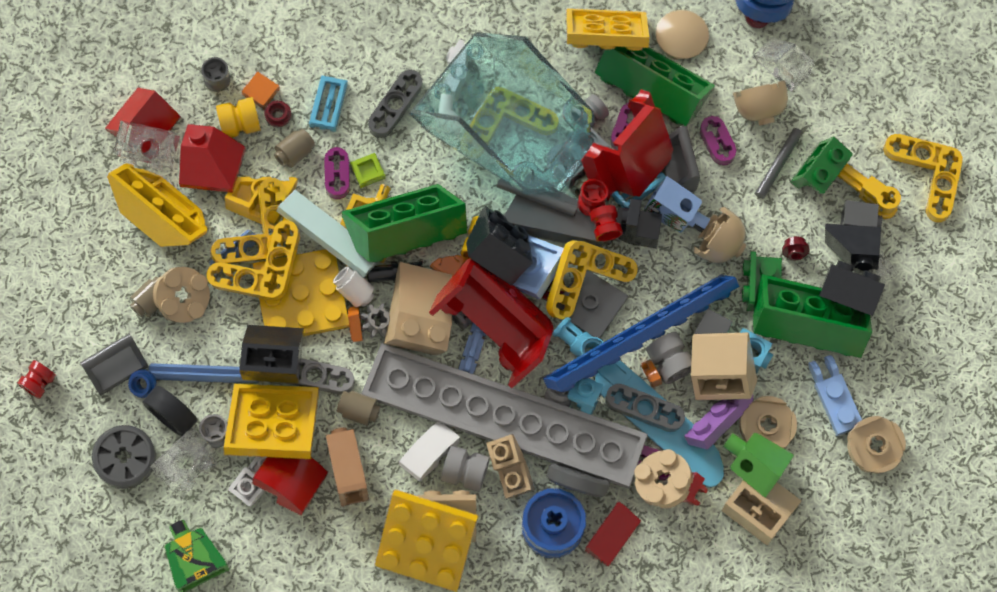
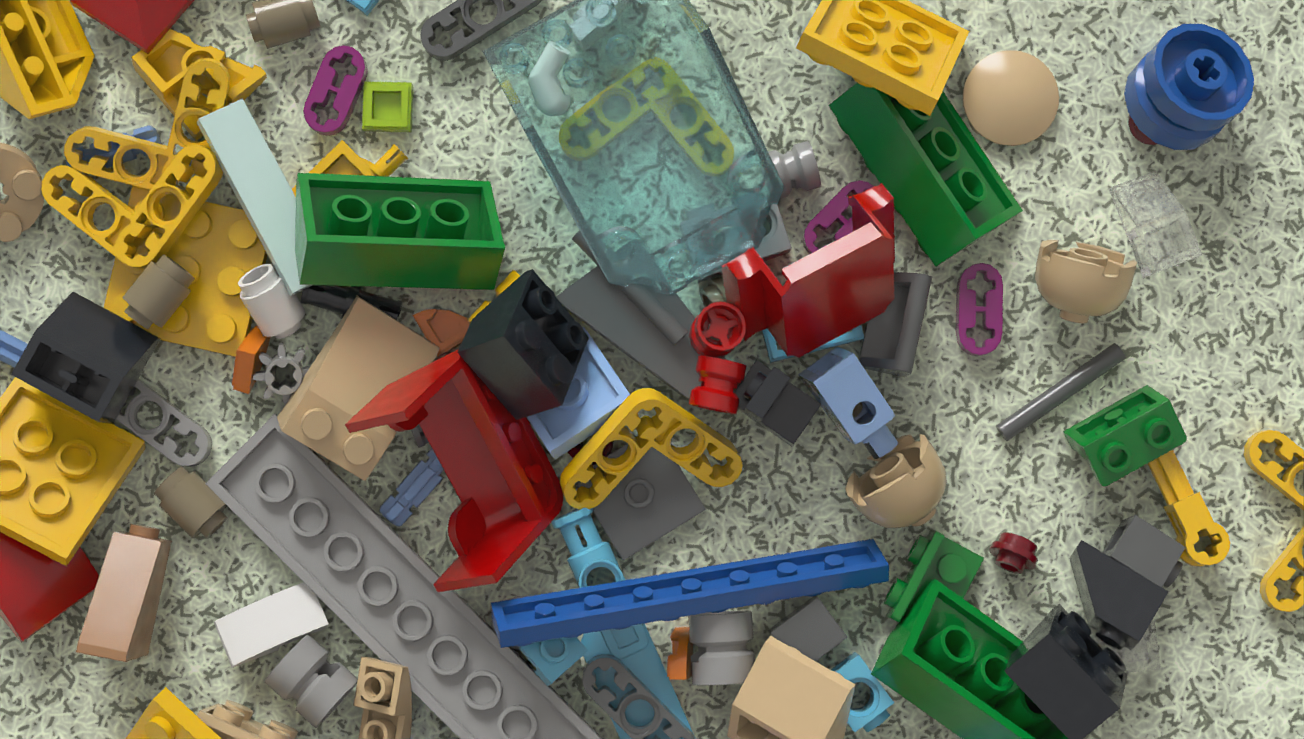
camera: 30 degrees right, 15 degrees up
(294, 304) = (158, 292): none -> dark tan brick

